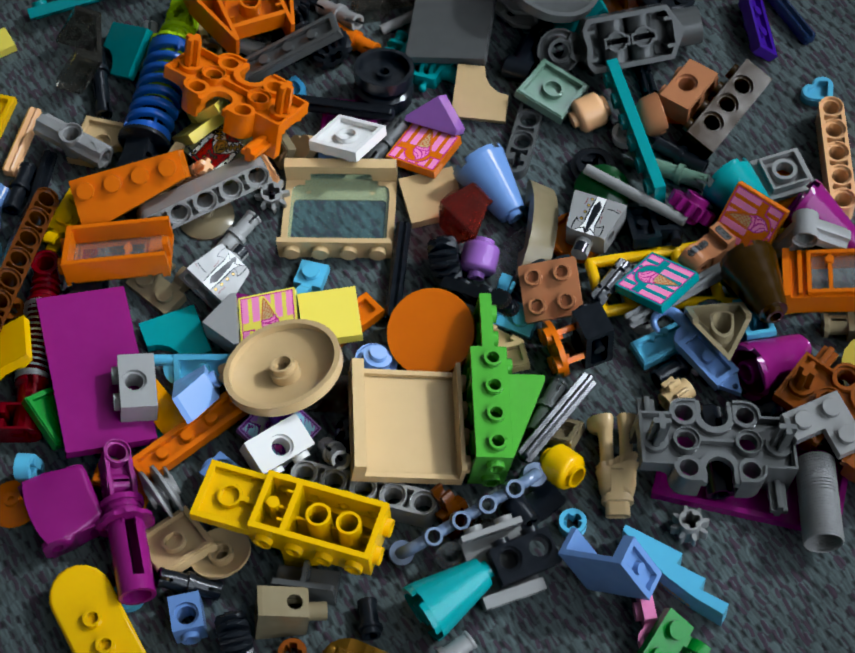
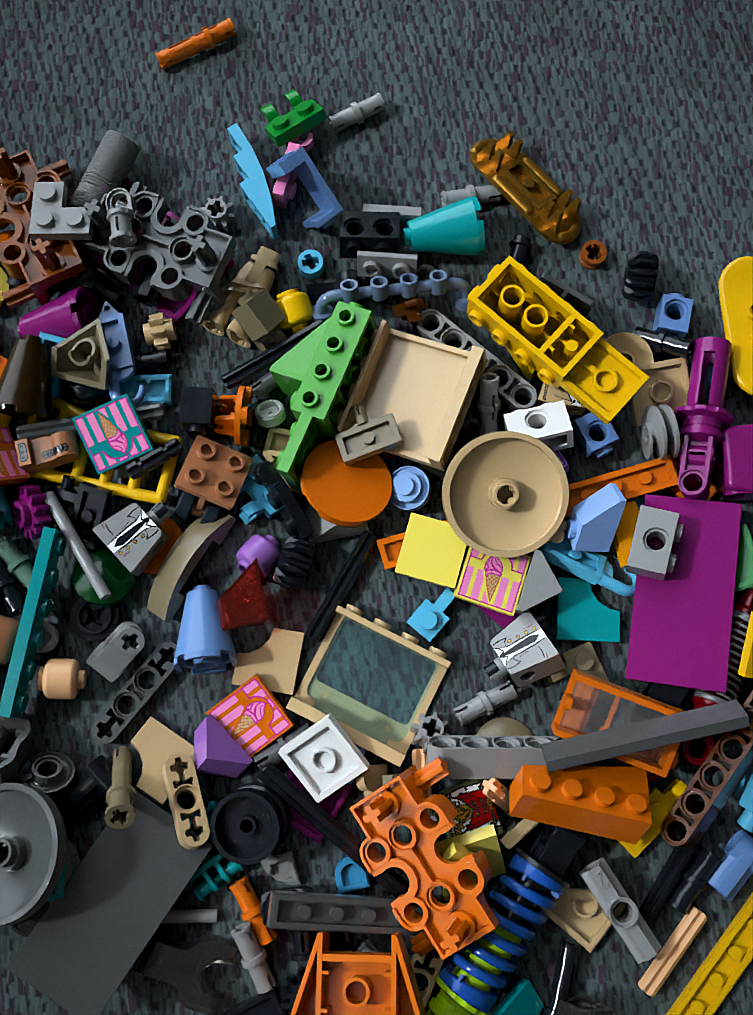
camera: 155 degrees left, 20 degrees up
(94, 232) = (644, 735): none -> dark grey tile
(285, 611) = (591, 276): dark tan torso -> none
(343, 76) = (282, 868): none -> light grey tile
(428, 367) = (368, 436): none -> dark tan plate
(432, 52) = (200, 821): none -> tan beam
(489, 47) = (121, 794): none -> dark tan pin
(536, 366) = (270, 413): none -> white tile
(551, 91) = (84, 725): sand green tile -> none
(557, 148) = (114, 654): none -> light grey piece
(588, 434) = (258, 313): none -> dark tan brick
(760, 440) = (121, 218): none -> light grey connector

